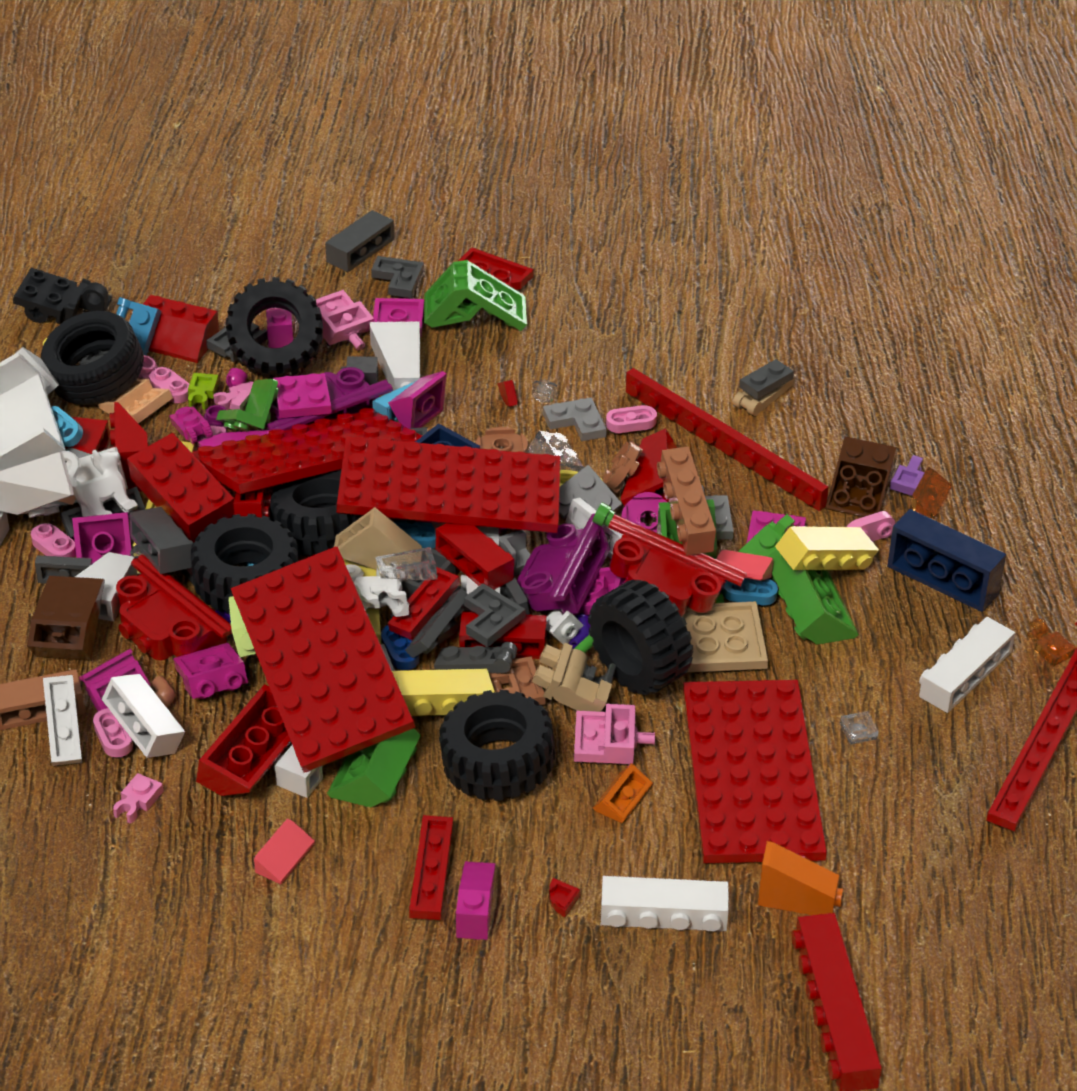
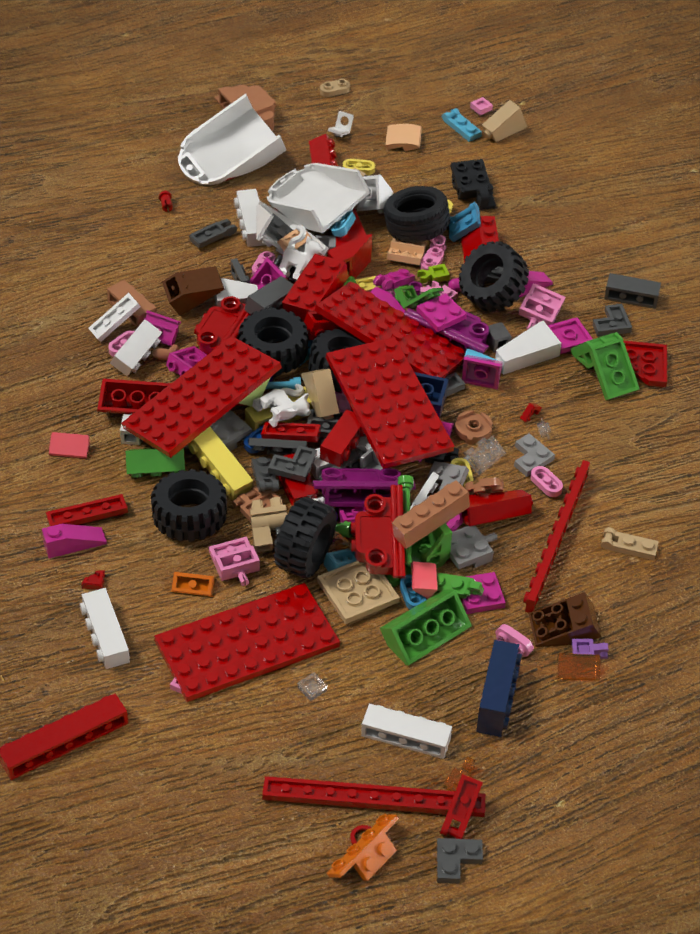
camera: 65 degrees right, 5 degrees up
(139, 793) = (84, 373): bright pink plate -> none
(410, 565) = (309, 418): clear slope -> none
(766, 379) = (633, 537): dark grey plate -> none
(797, 883) = (146, 685): orange slope -> none
(827, 548) = (459, 614): light yellow brick -> none

